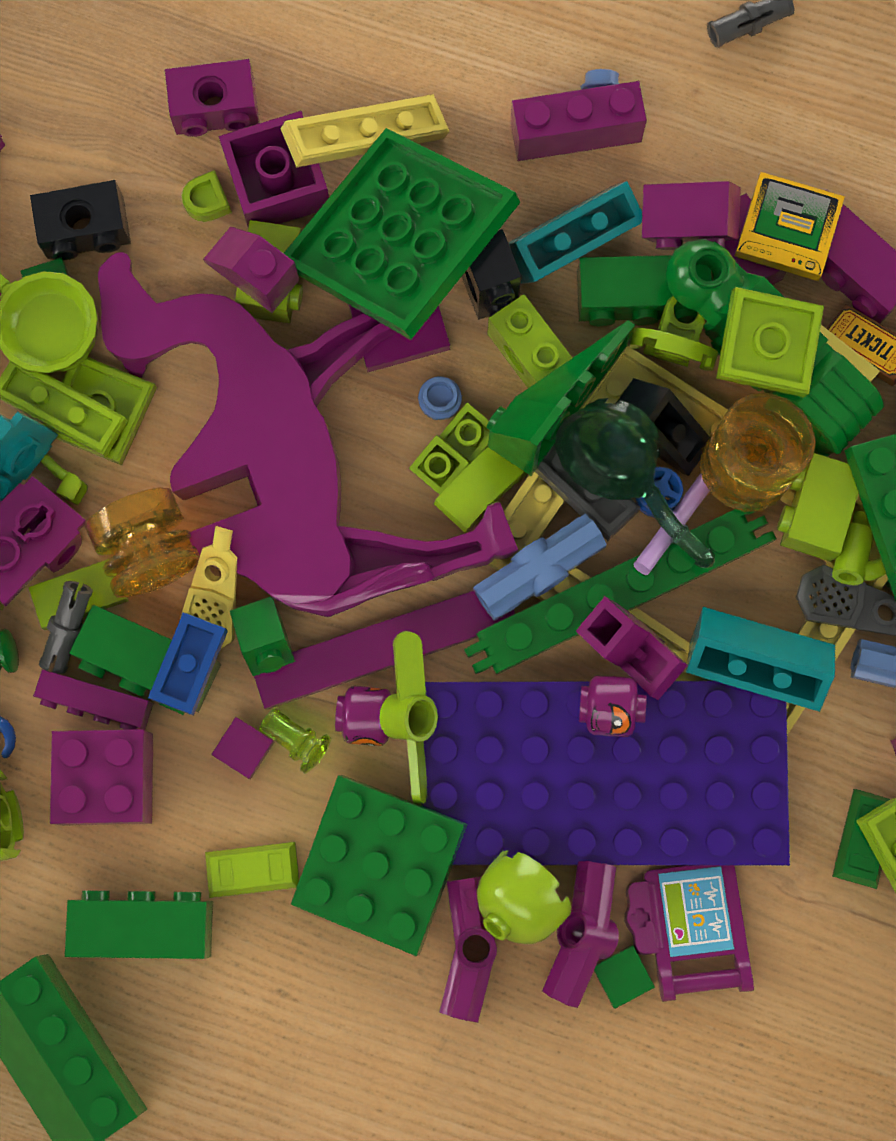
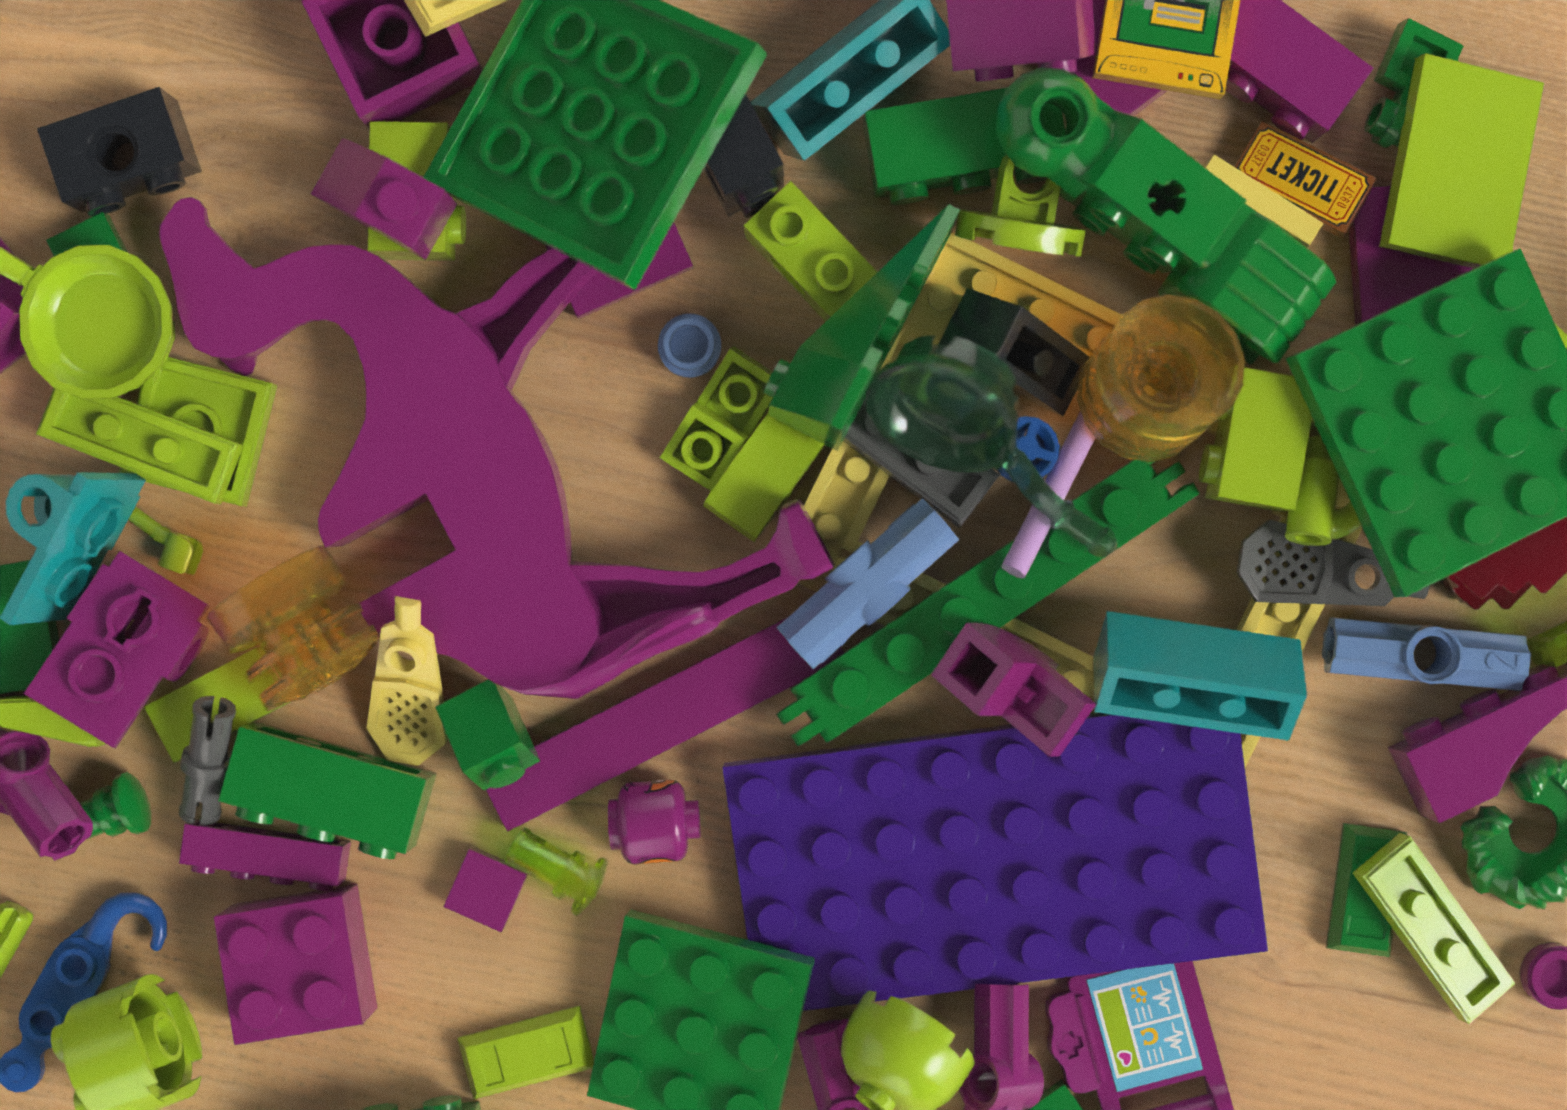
camera: 10 degrees left, 10 degrees up
(188, 663) = (388, 798): blue plate -> none
(205, 198) = (299, 87): lime tile -> none
(412, 703) = (710, 818): lime piece -> none
(612, 706) = (996, 777): magenta head -> none
(770, 342) = (1162, 218): lime tile -> none

